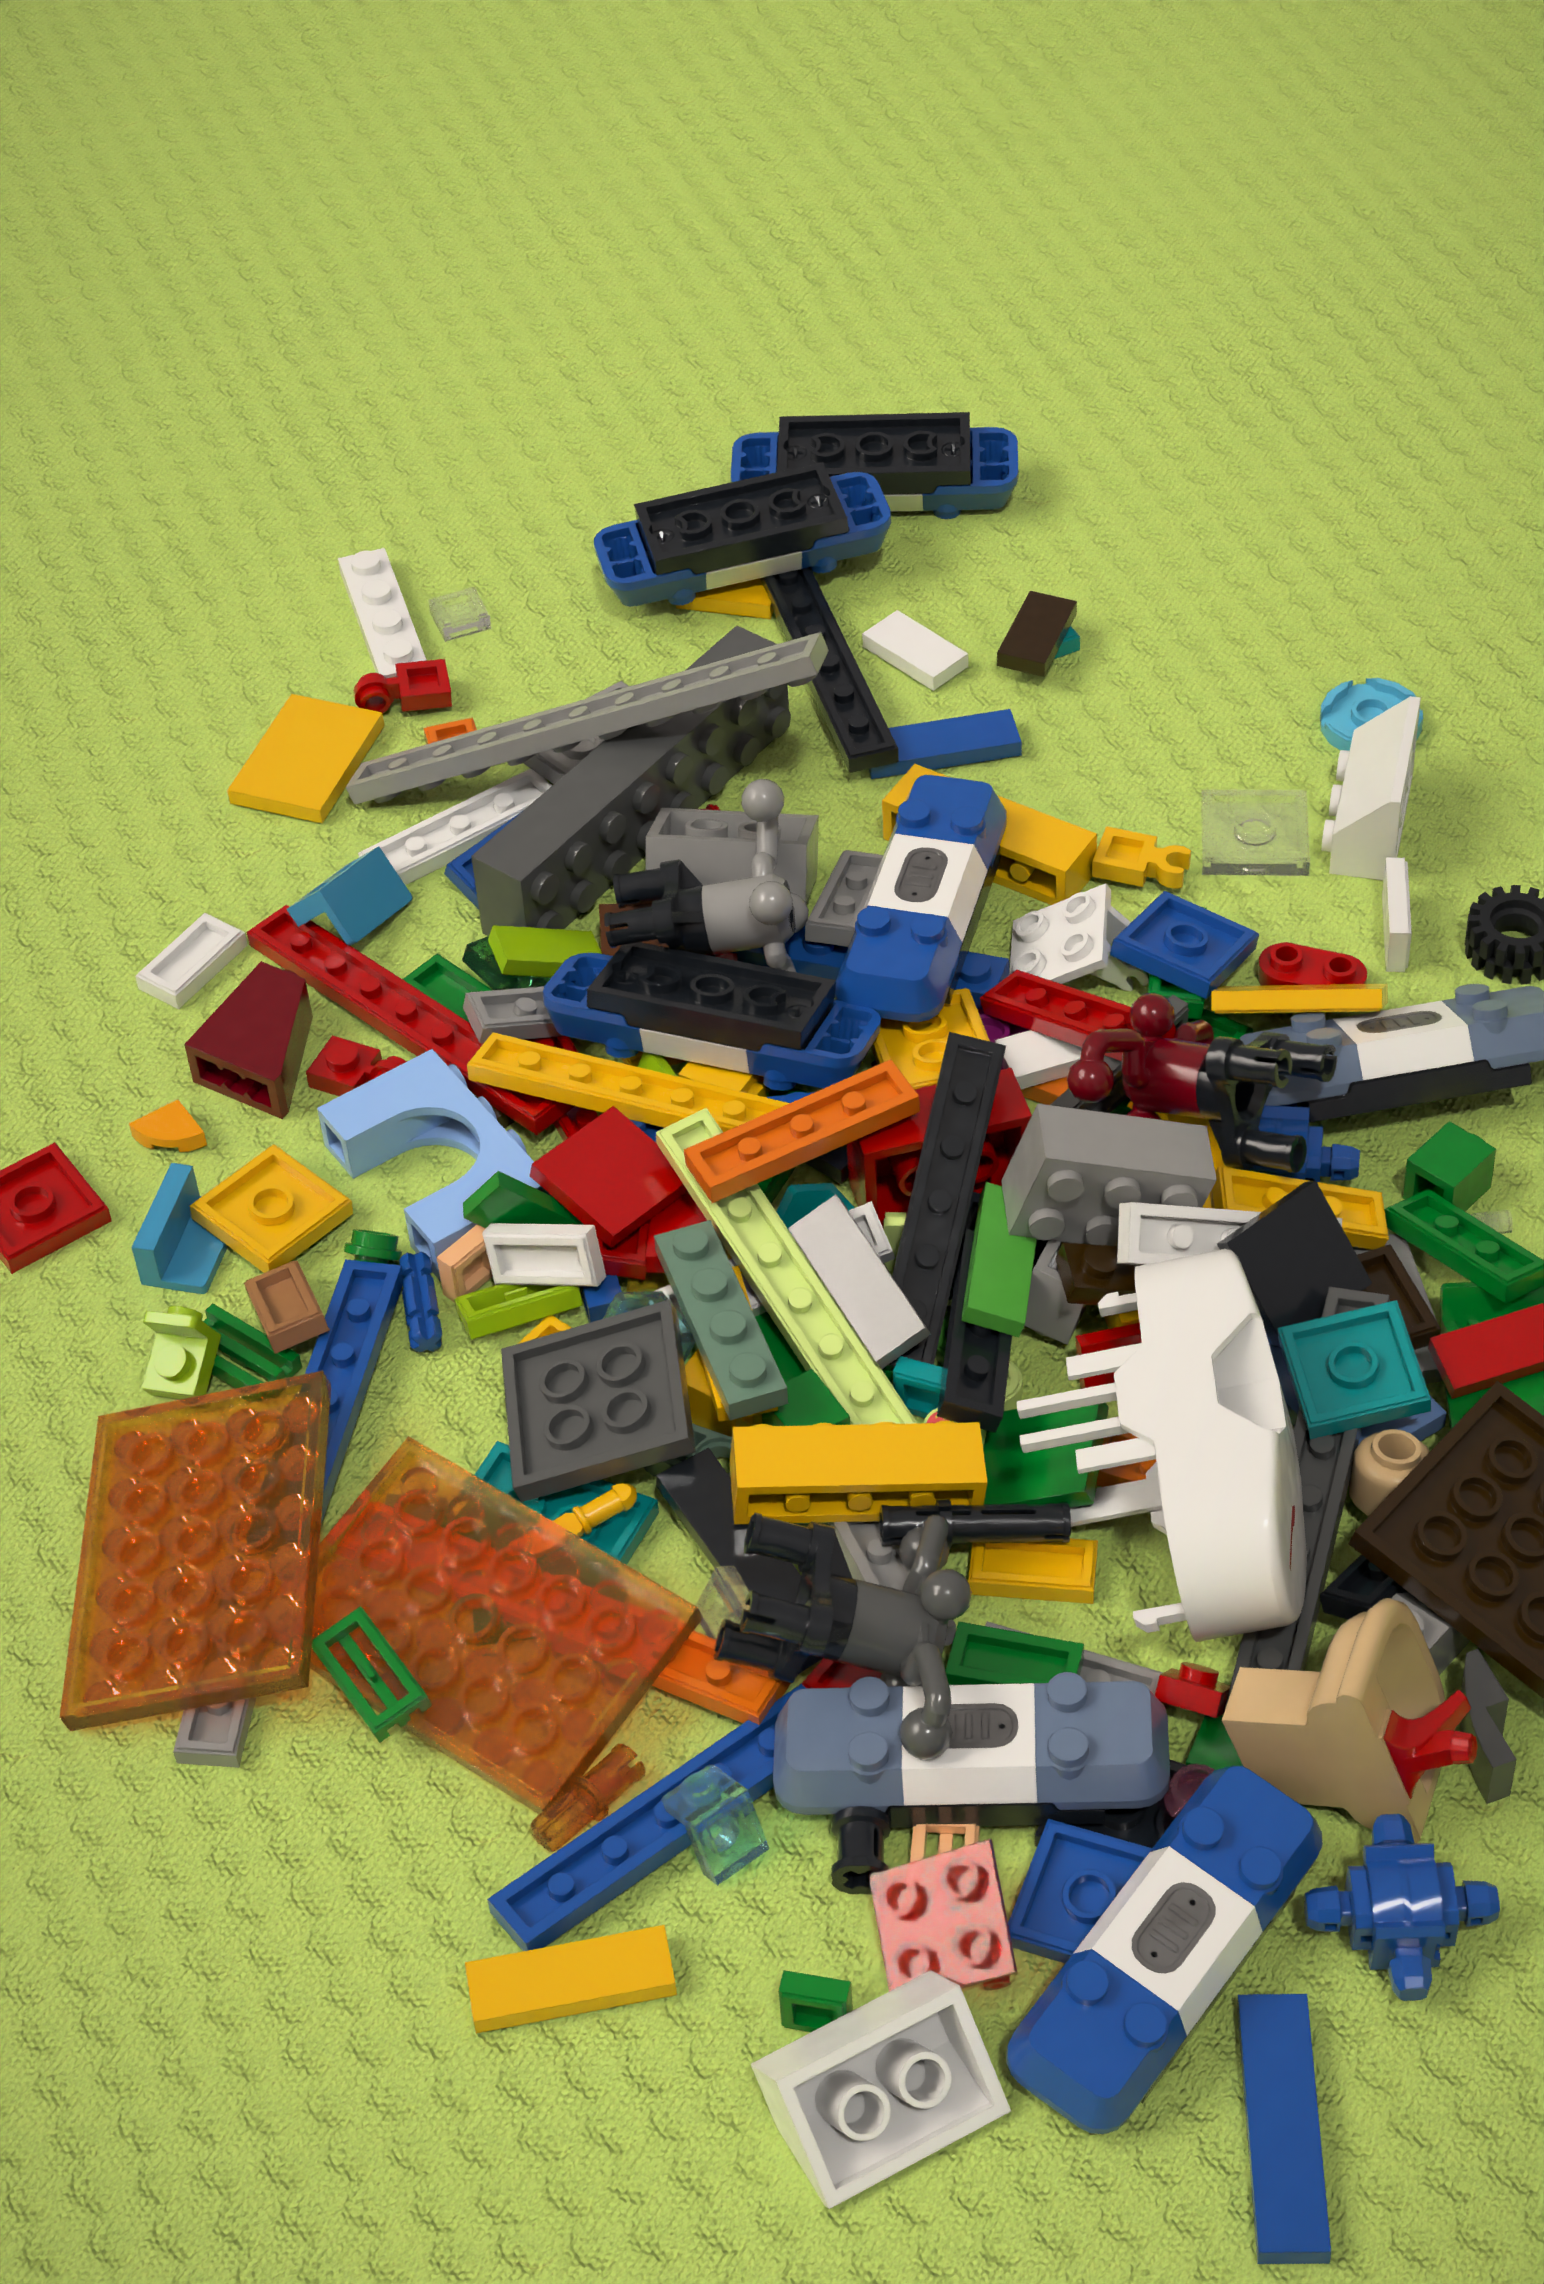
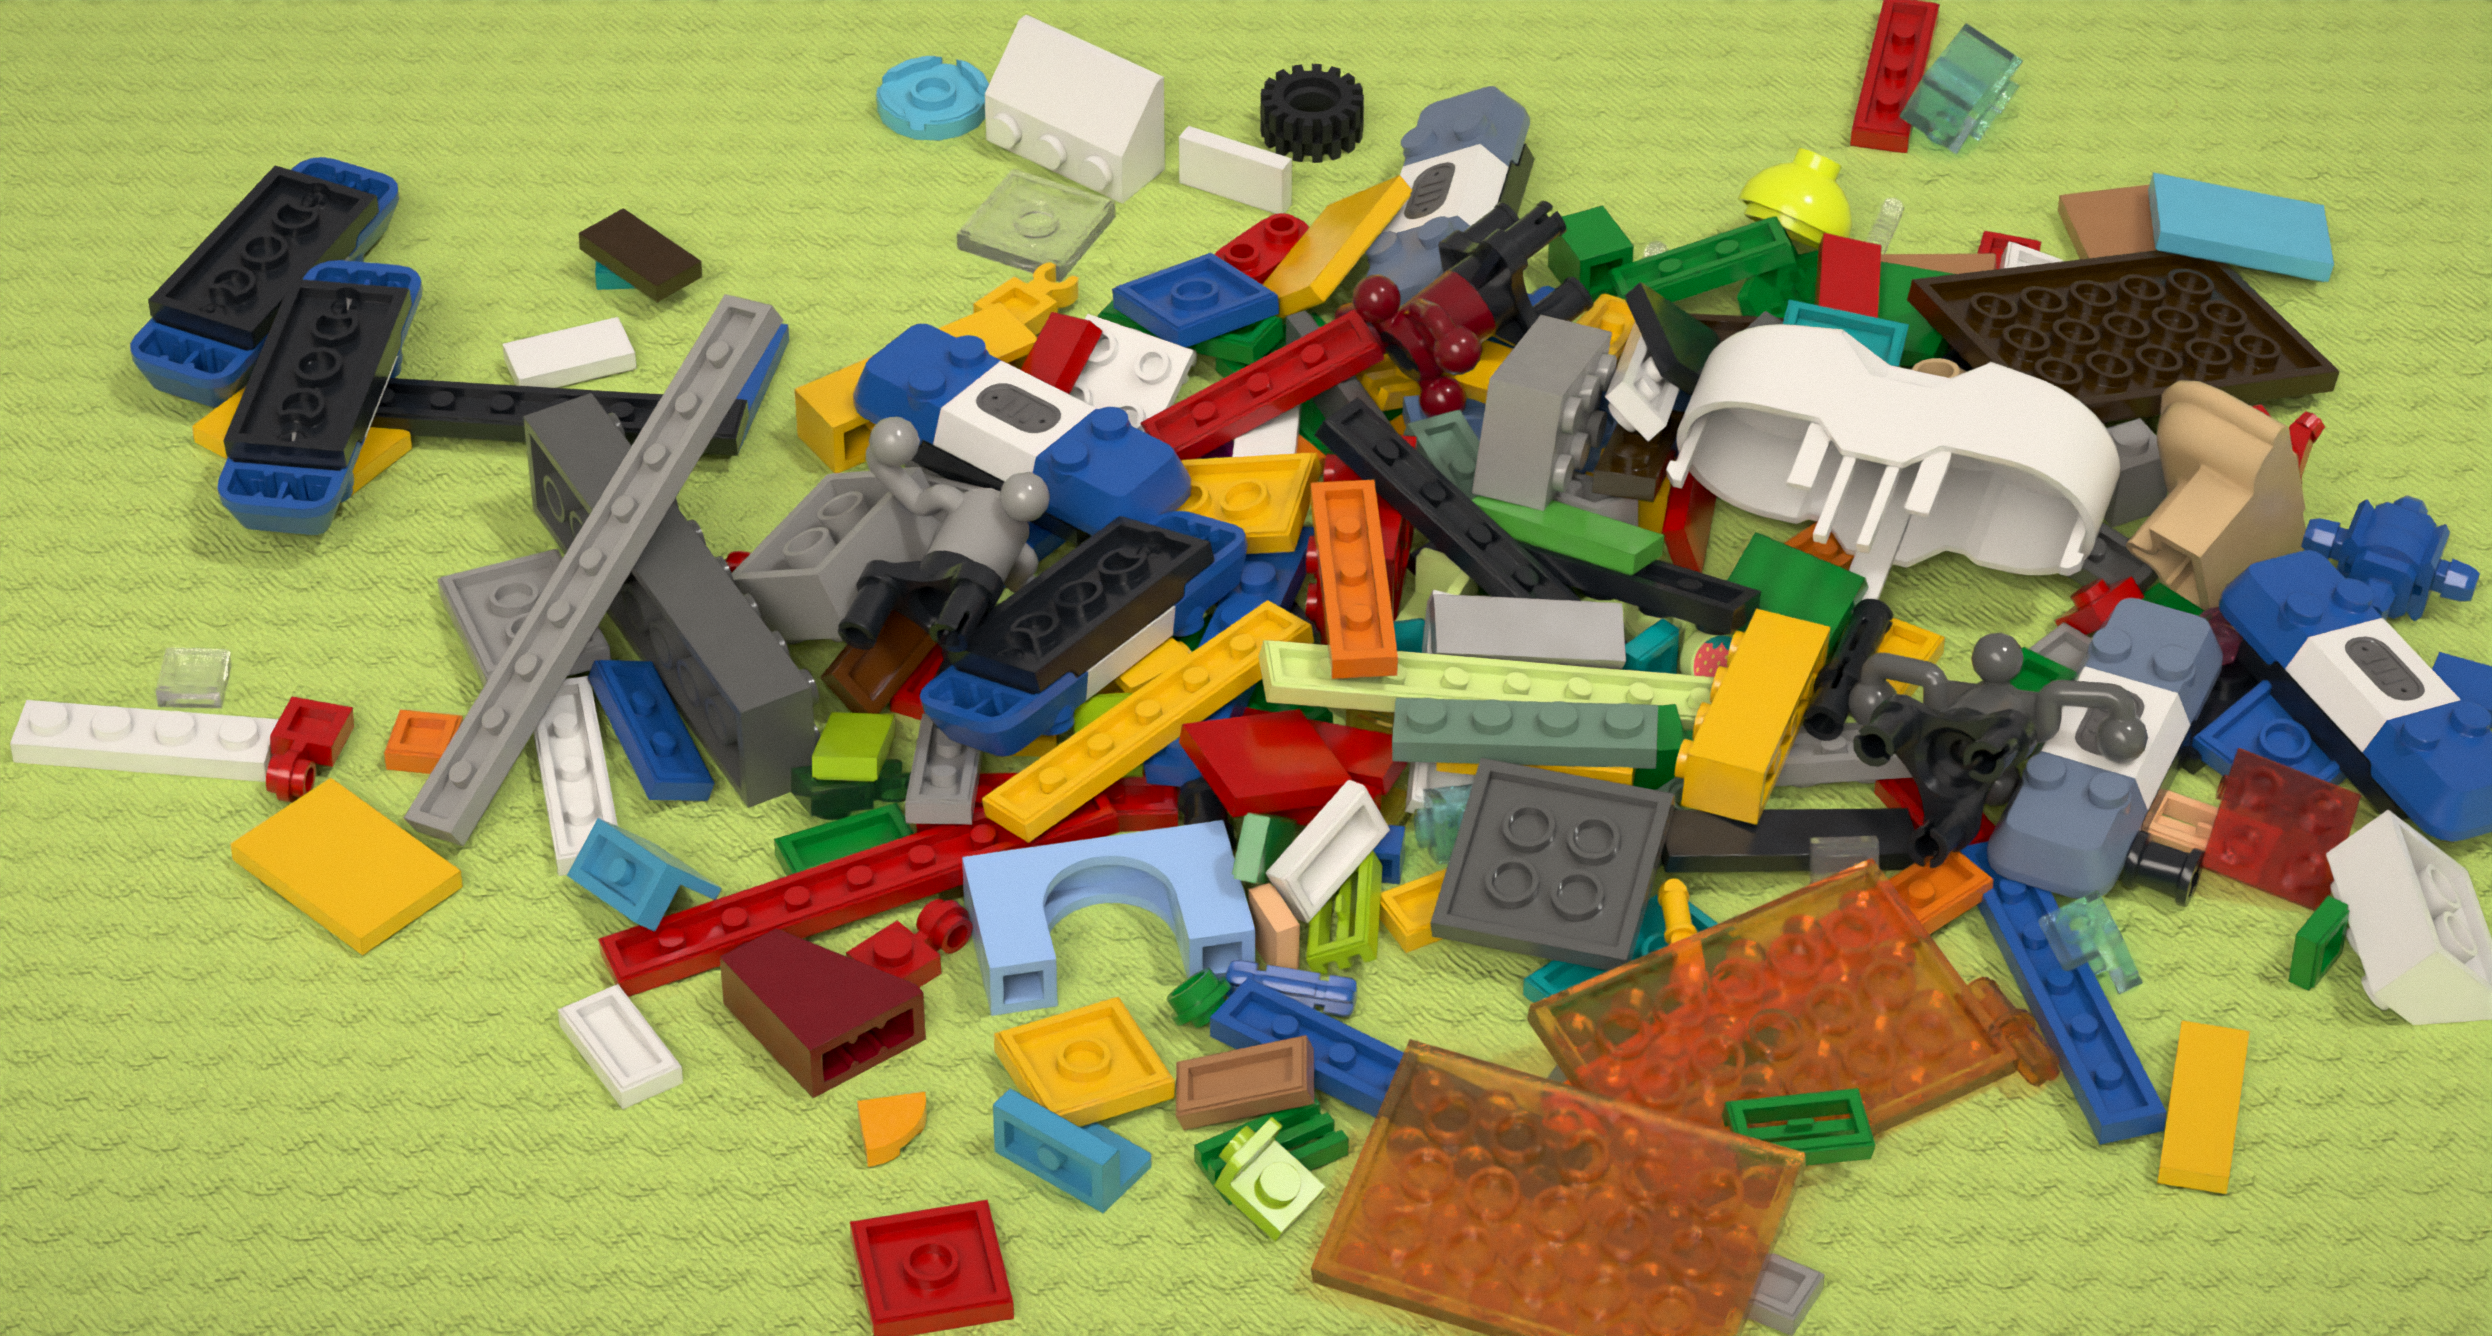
camera: 70 degrees left, 5 degrees down
(1037, 895) = (1062, 350): none -> red tile

